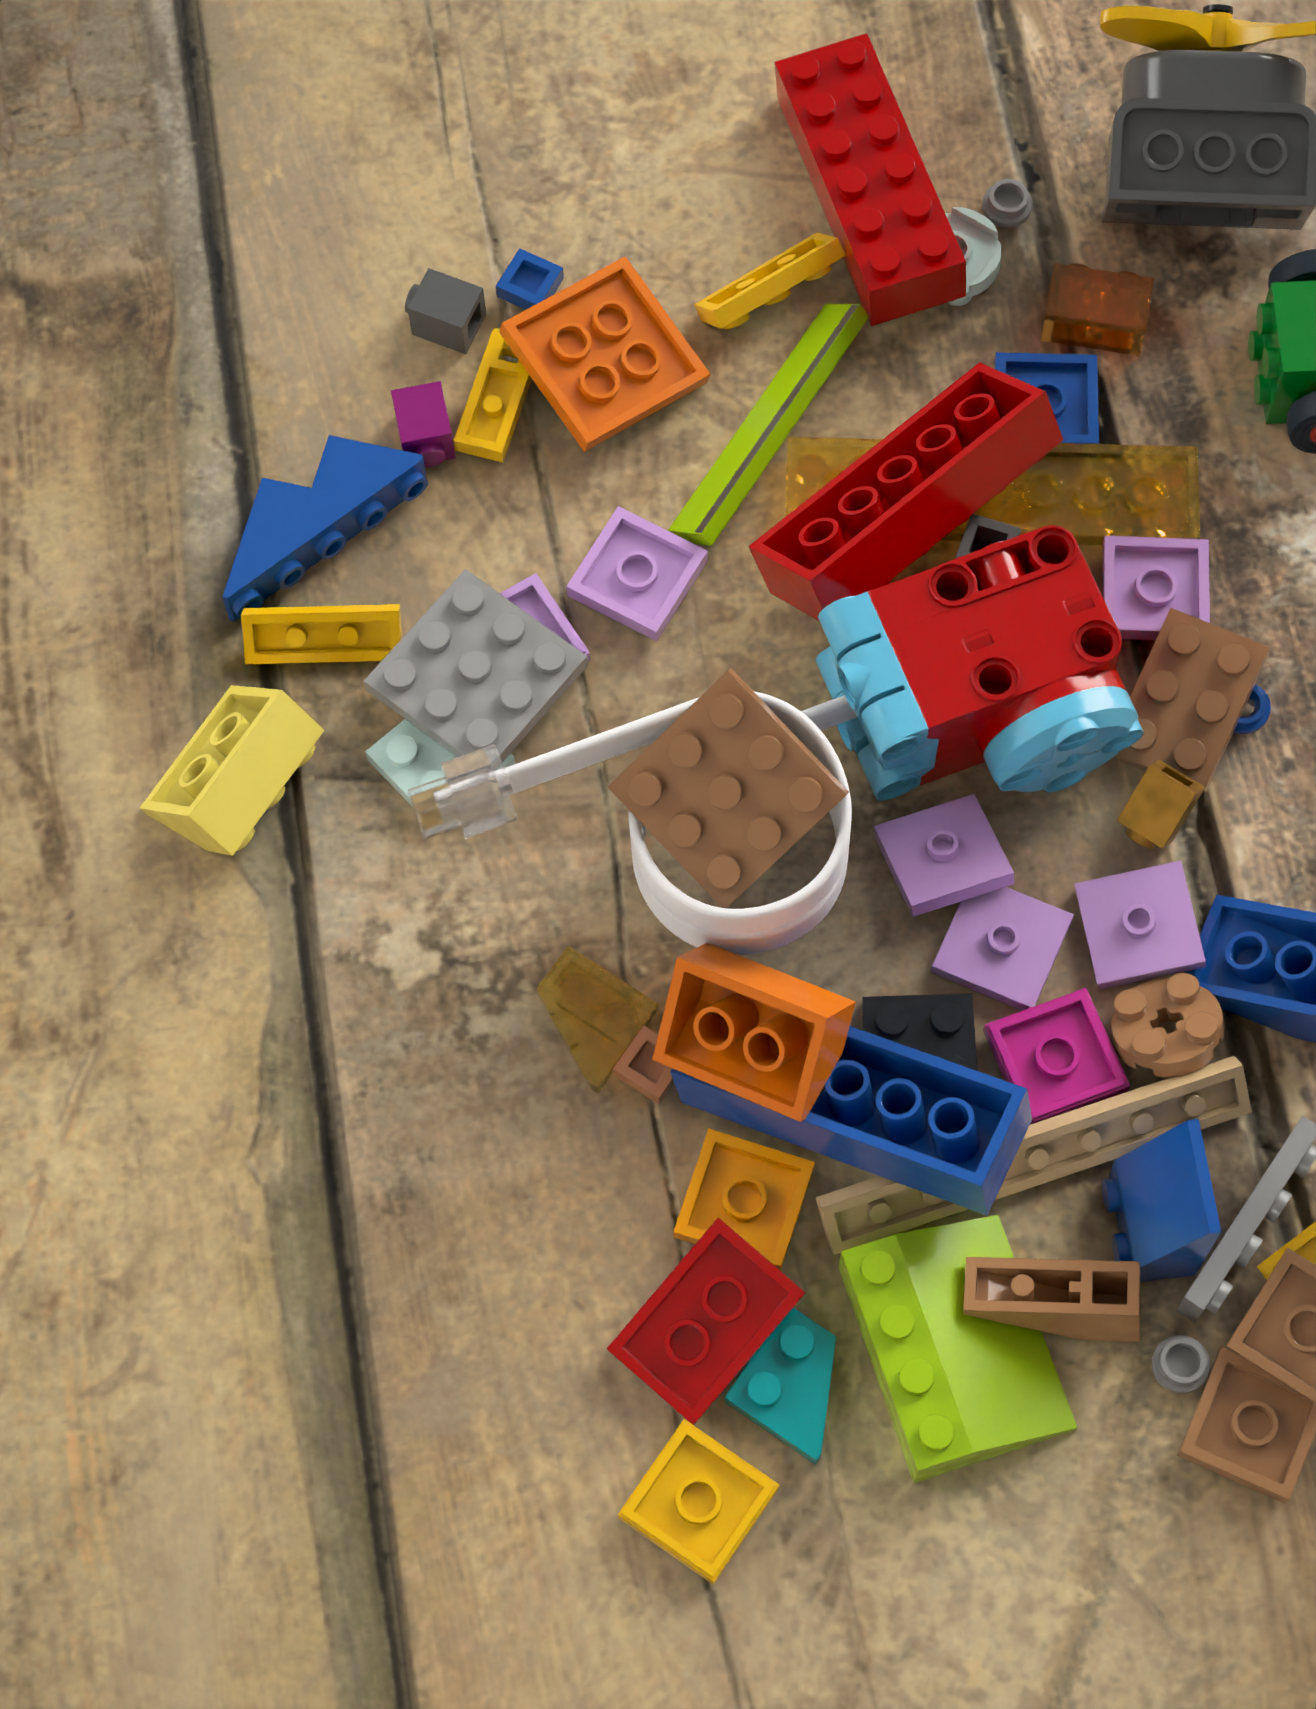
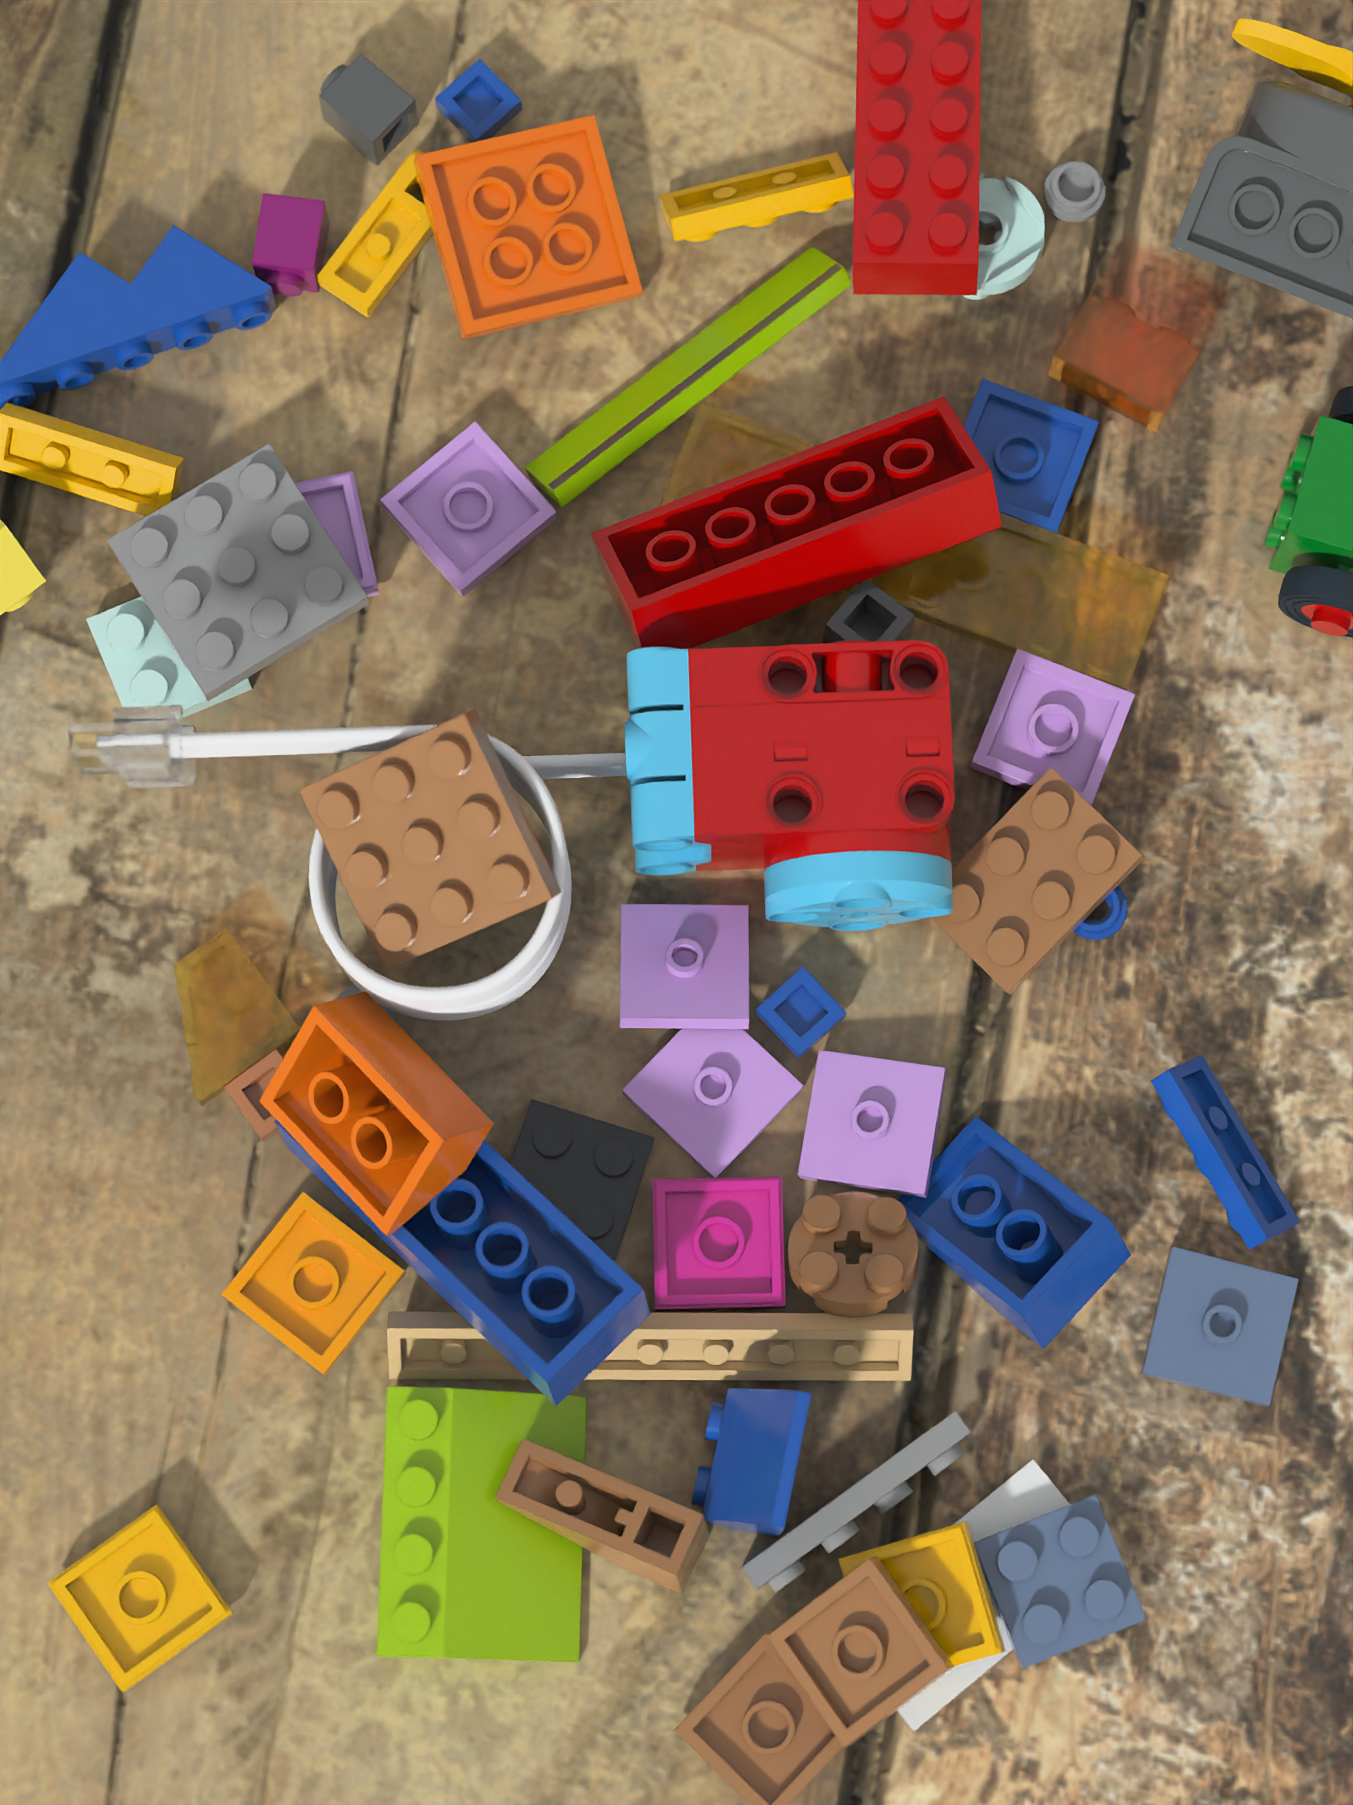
camera: 15 degrees right, 10 degrees up
(706, 1321) = (218, 1406): red plate -> none
(789, 1384) = (288, 1503): teal wing -> none
(1048, 860) = (800, 1012): none -> blue plate
(1159, 805) = (948, 994): pearl gold brick -> none
(1180, 1364) = (717, 1632): light grey plate -> none

